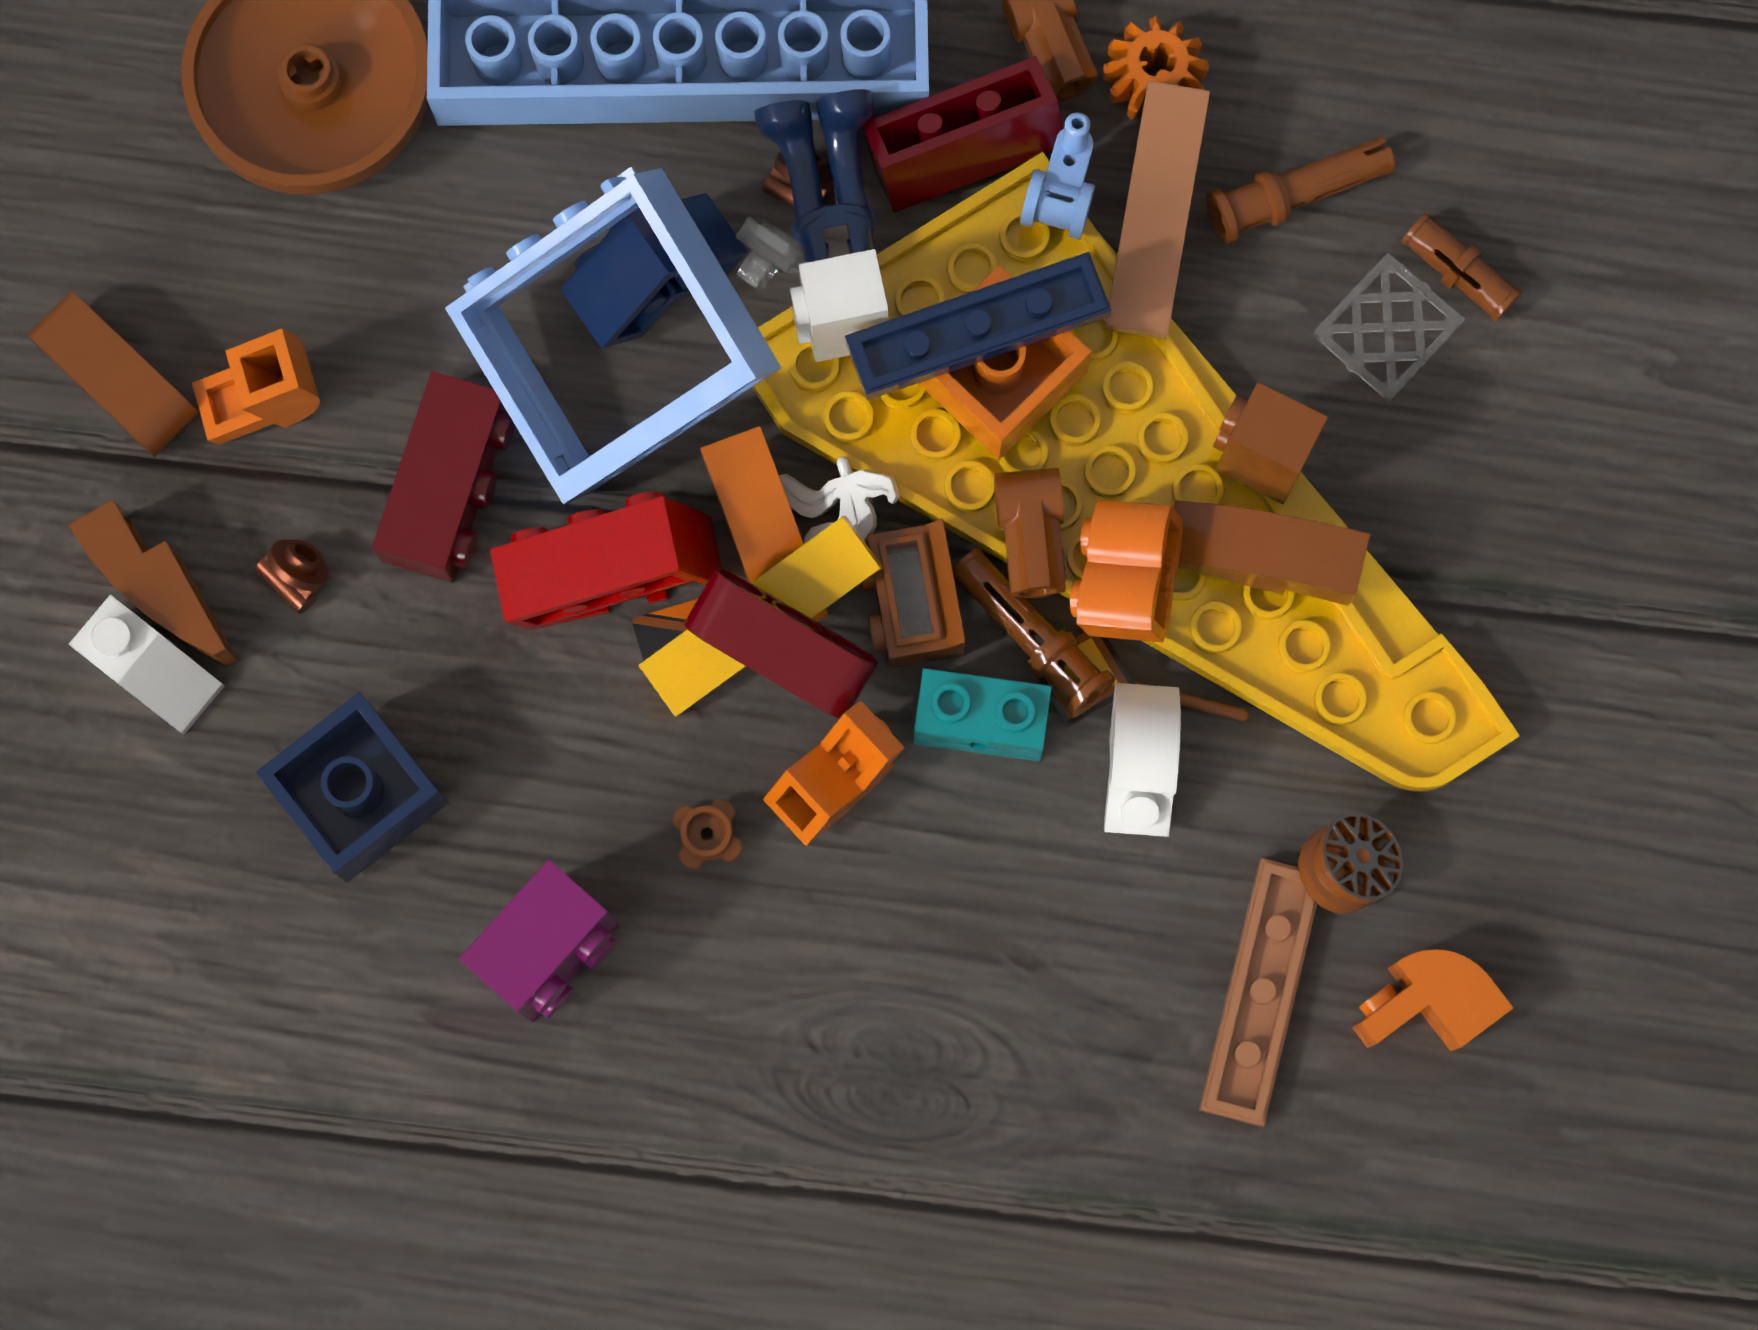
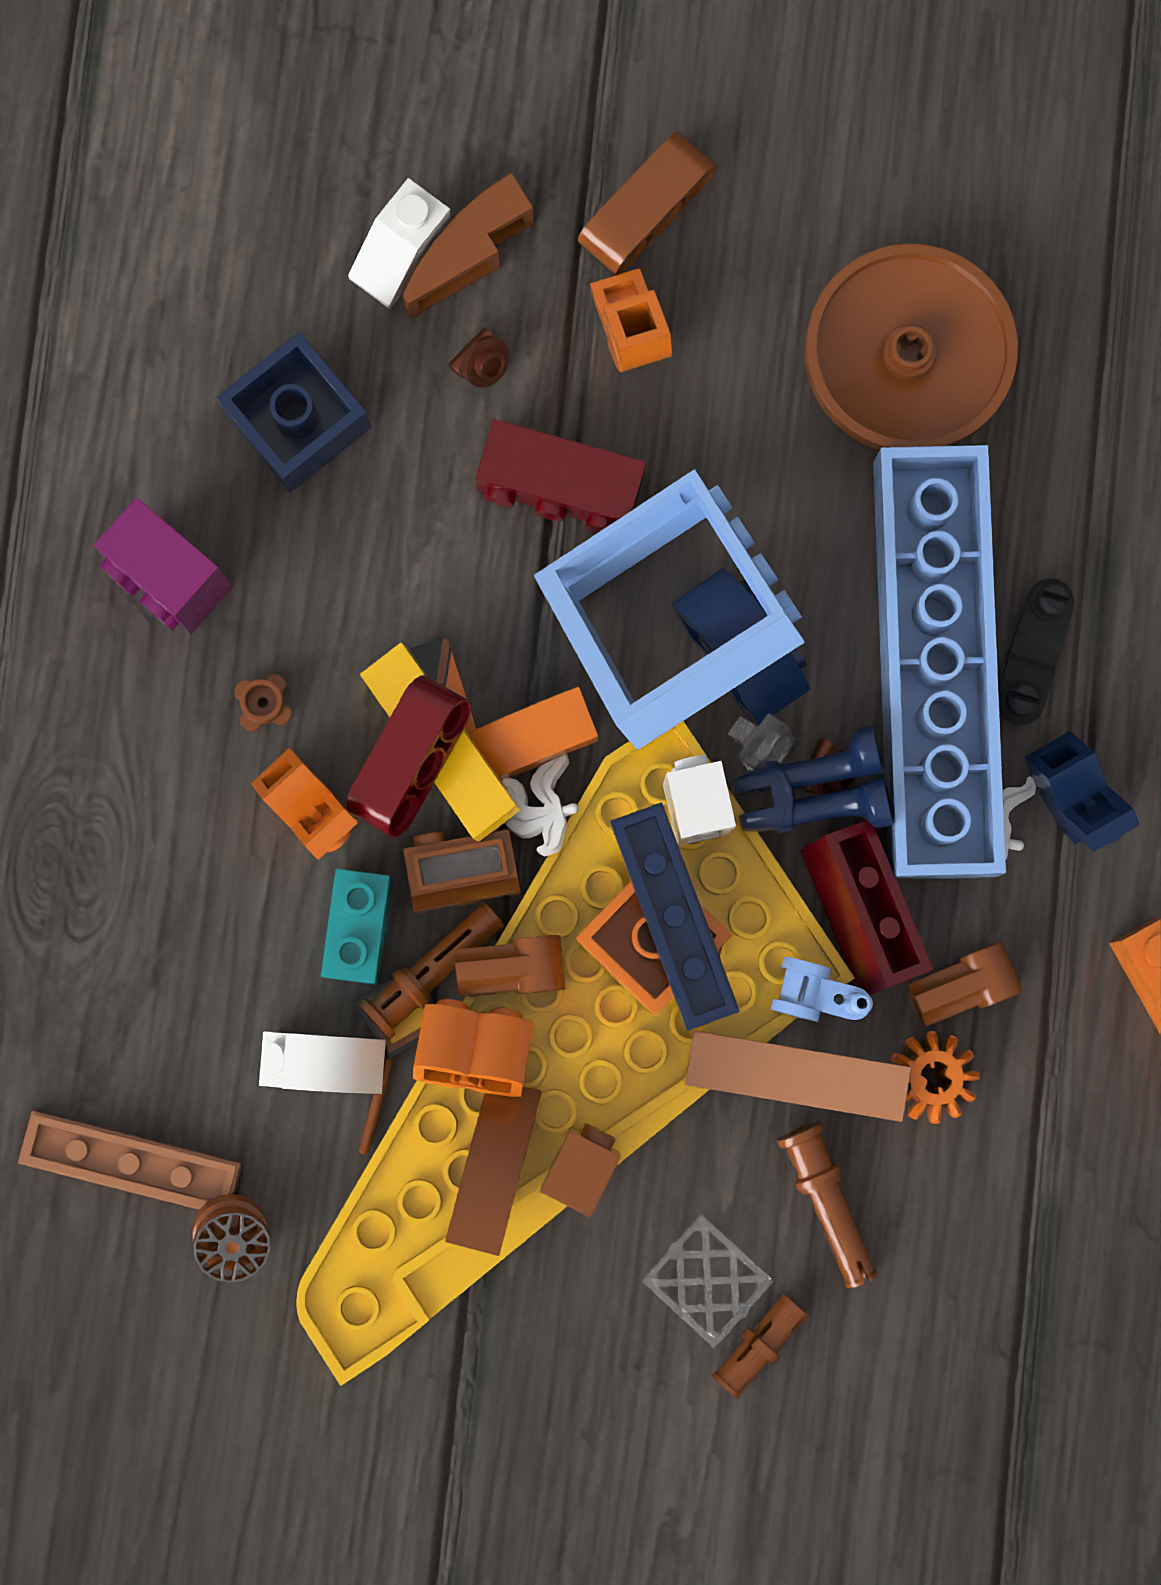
camera: 85 degrees right, 5 degrees up
(603, 561) = (485, 613): red wedge -> none
(1445, 988) = (130, 1308): orange brick -> none

